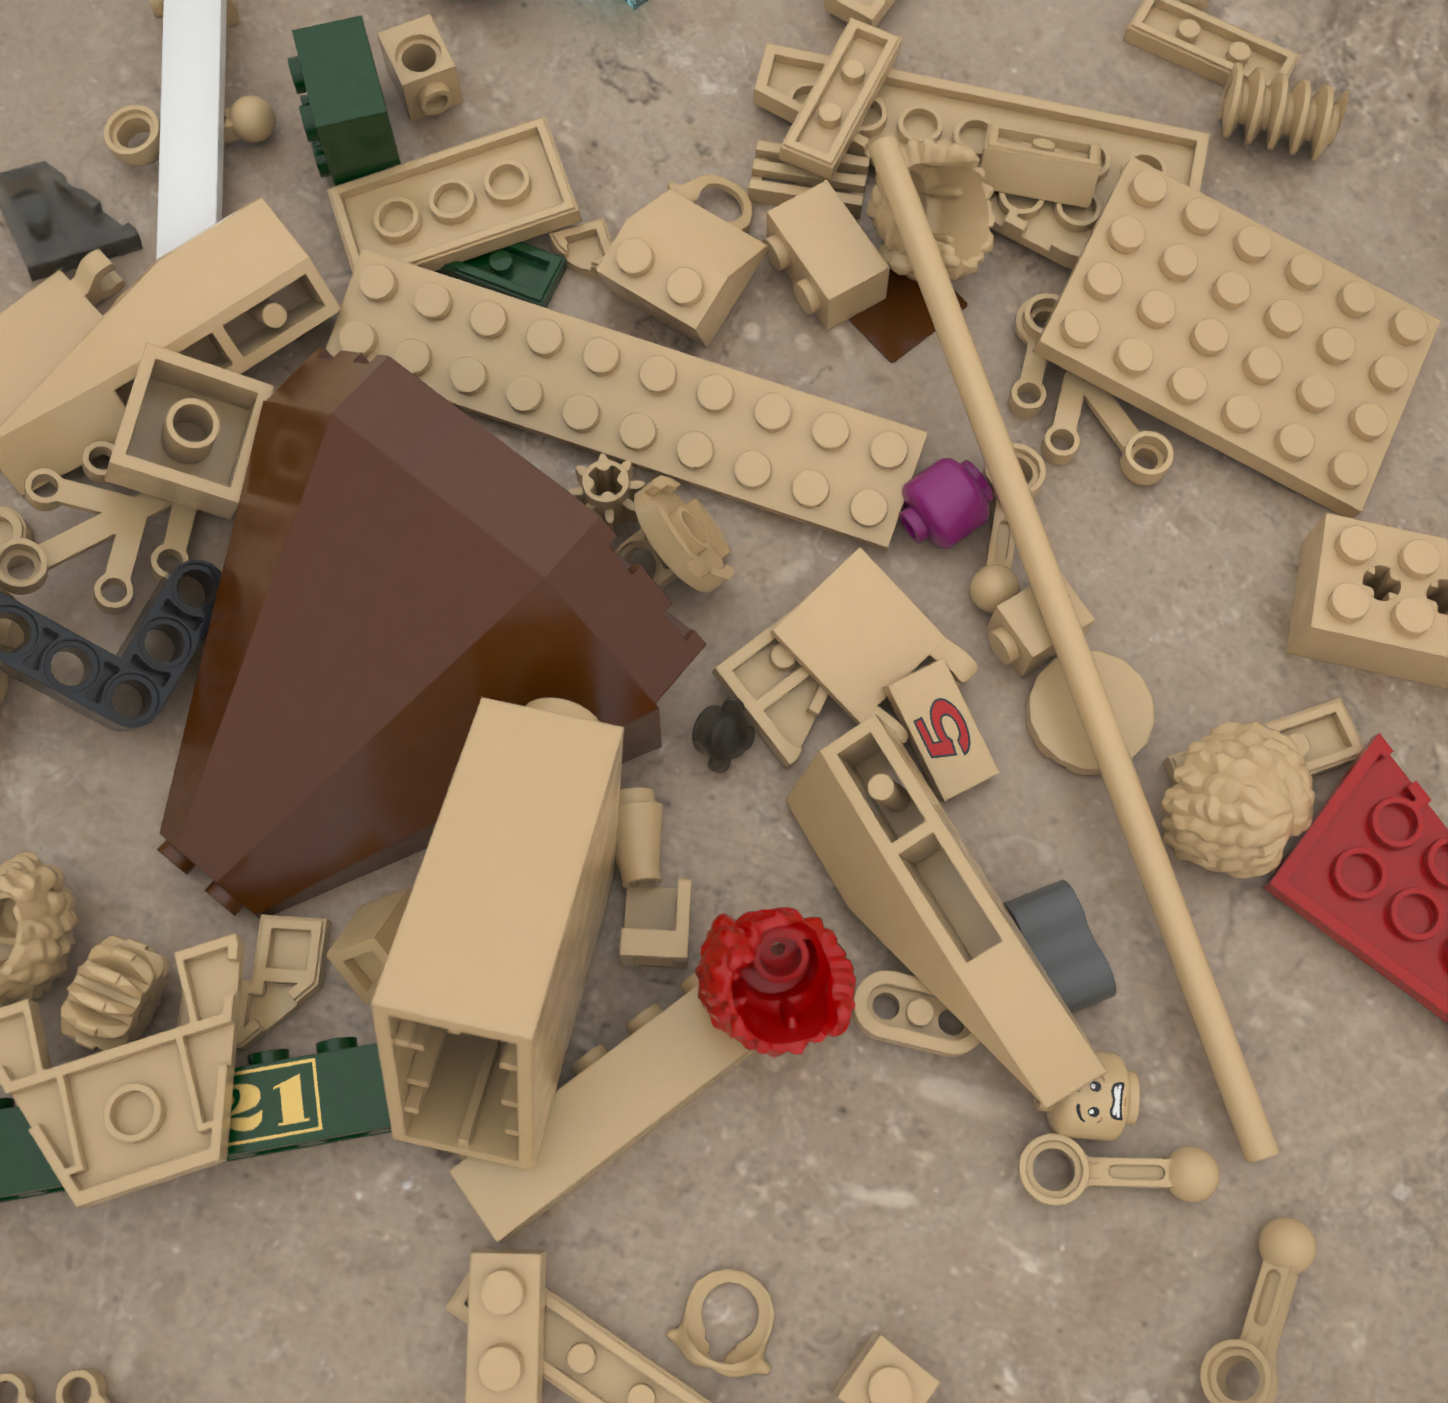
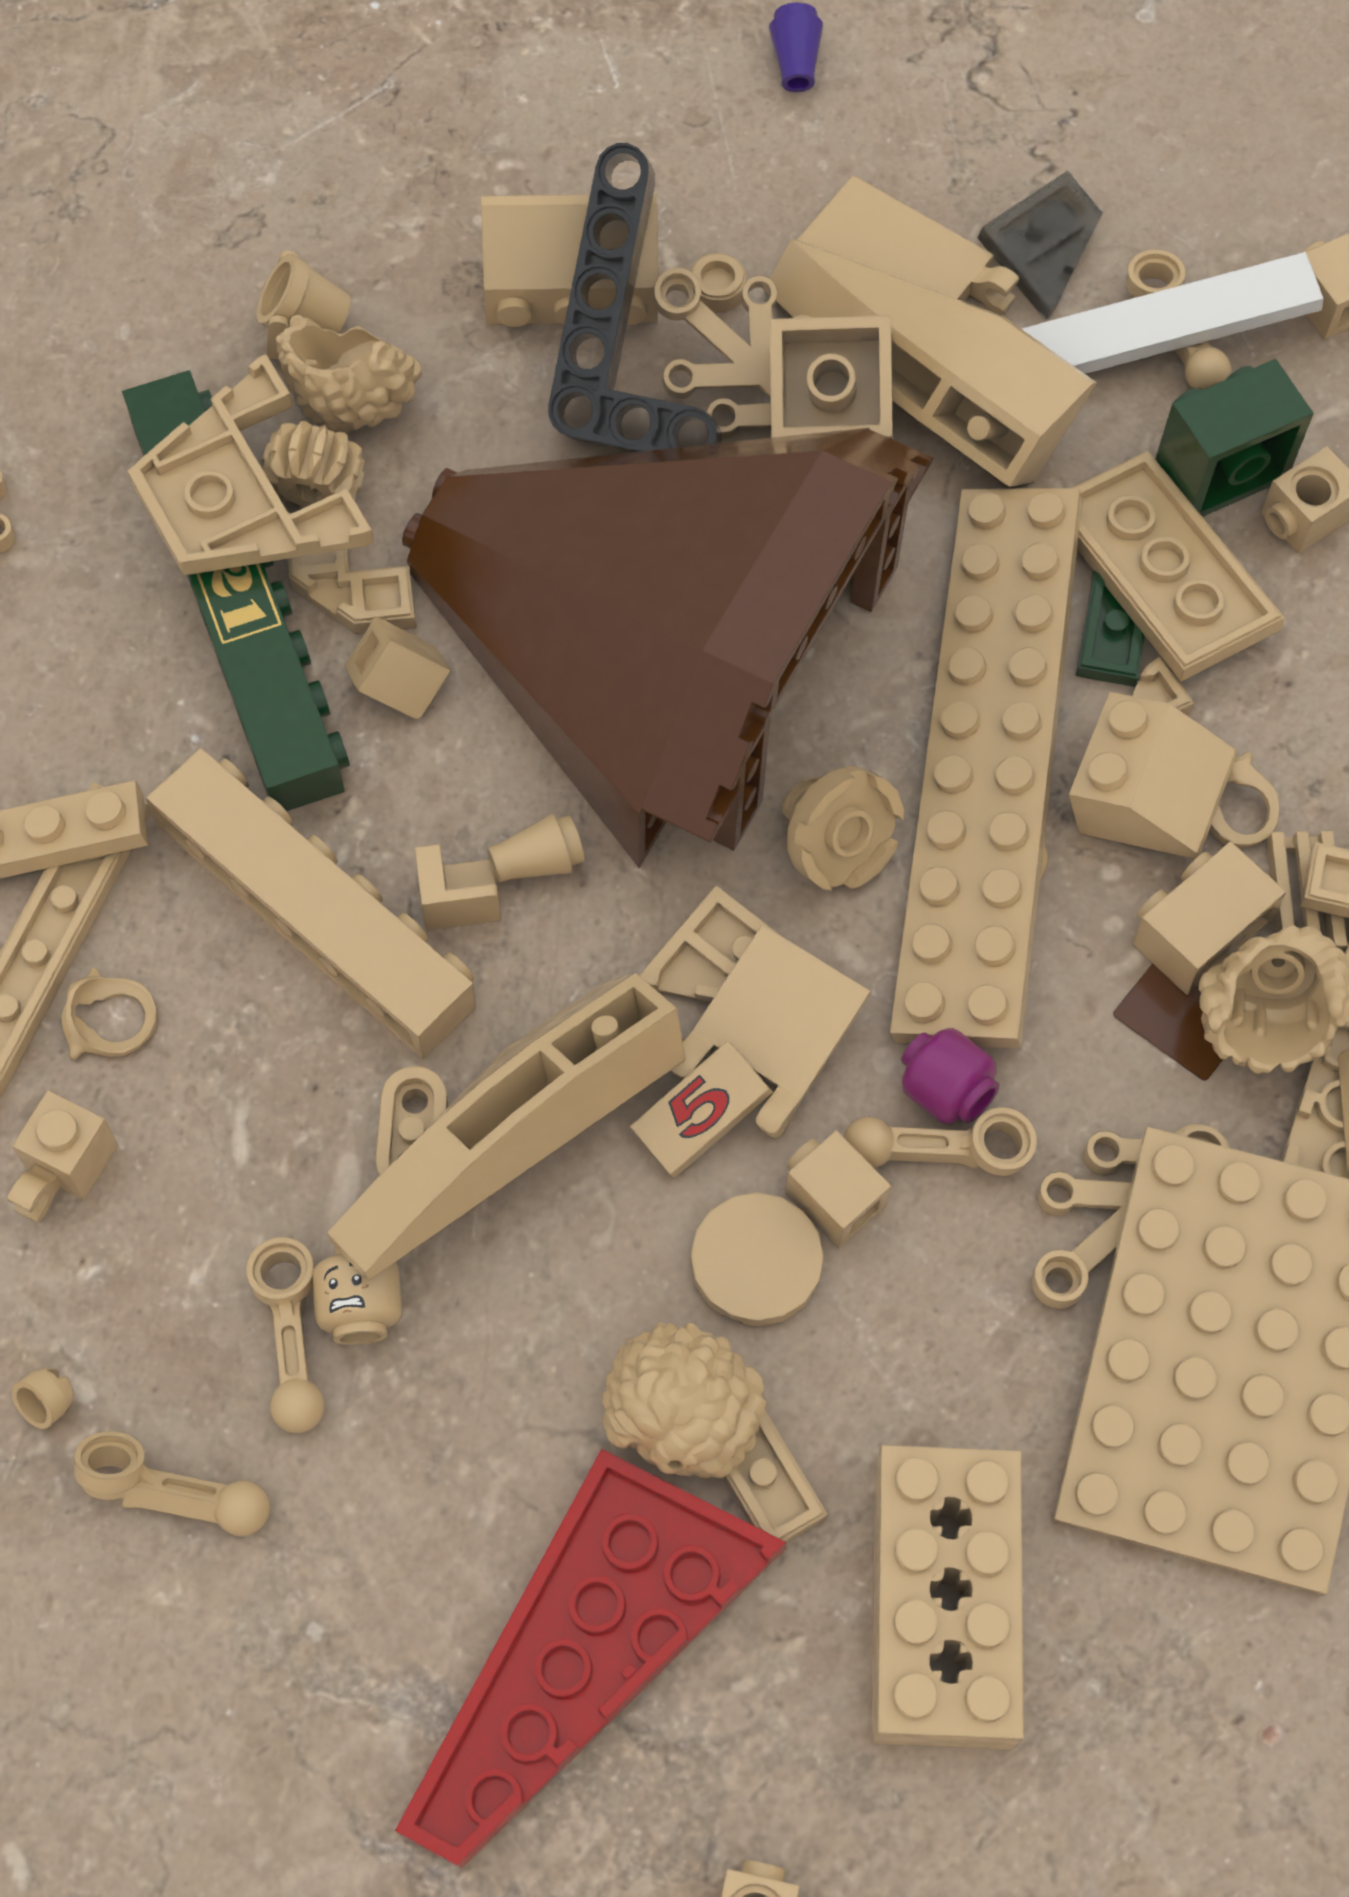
camera: 80 degrees right, 5 degrees down
(501, 932) = (398, 711): tan brick -> none
(605, 478) = (888, 746): tan gear -> none
(722, 734) = (660, 897): clear smoke plate -> none
(778, 993) = (398, 957): red hair -> none
(1063, 944) = (496, 1251): dark grey axle -> none
(1076, 660) = (816, 1194): tan piece -> none

